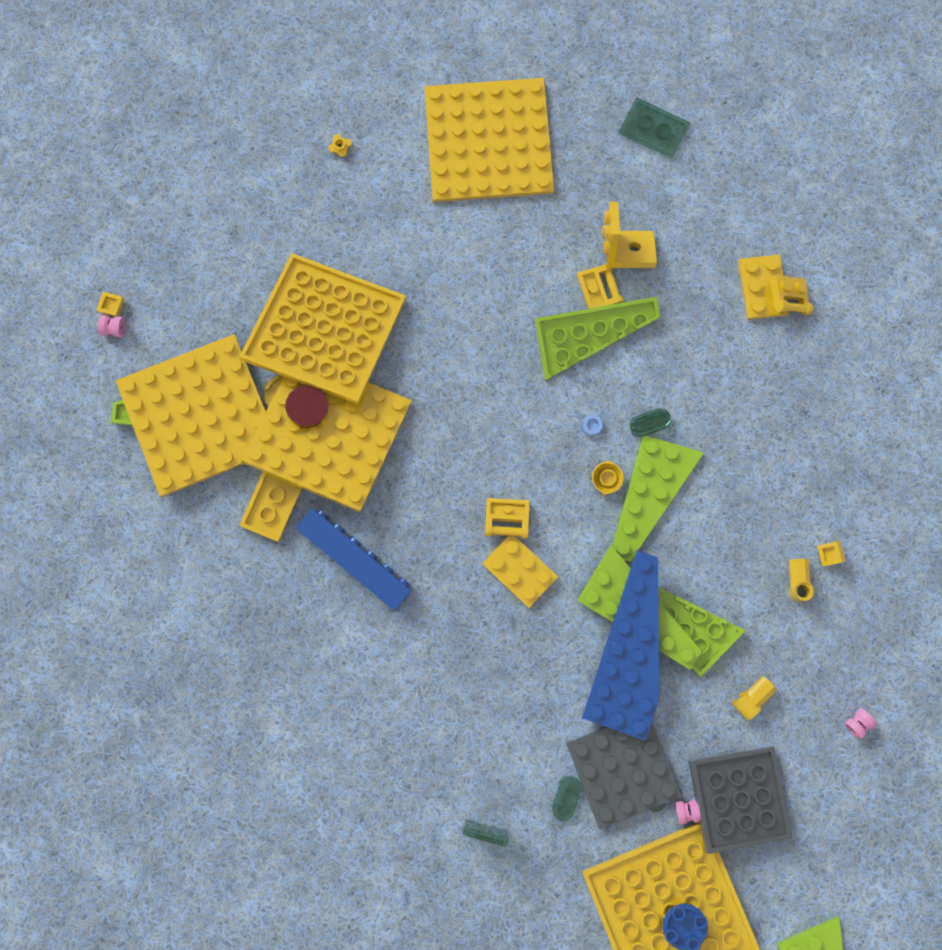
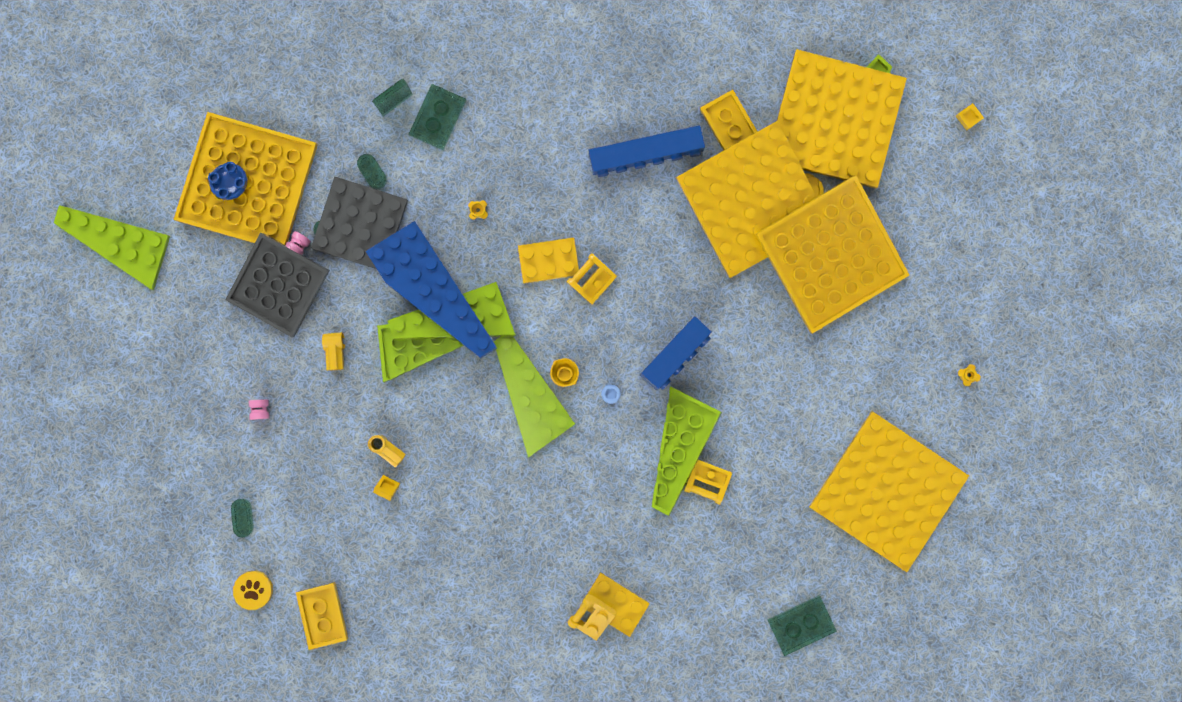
camera: 125 degrees right, 5 degrees up
(111, 326) = (952, 105): bright pink wheel -> none
(306, 406) = (781, 196): dark red tile -> none
(468, 777) = (437, 117): none -> clear green tile
(516, 393) = (672, 357): none -> blue brick
(524, 676) = (475, 205): none -> yellow plate
(618, 243) = (732, 520): yellow bracket -> none
(650, 422) = (580, 436): clear green tile -> none

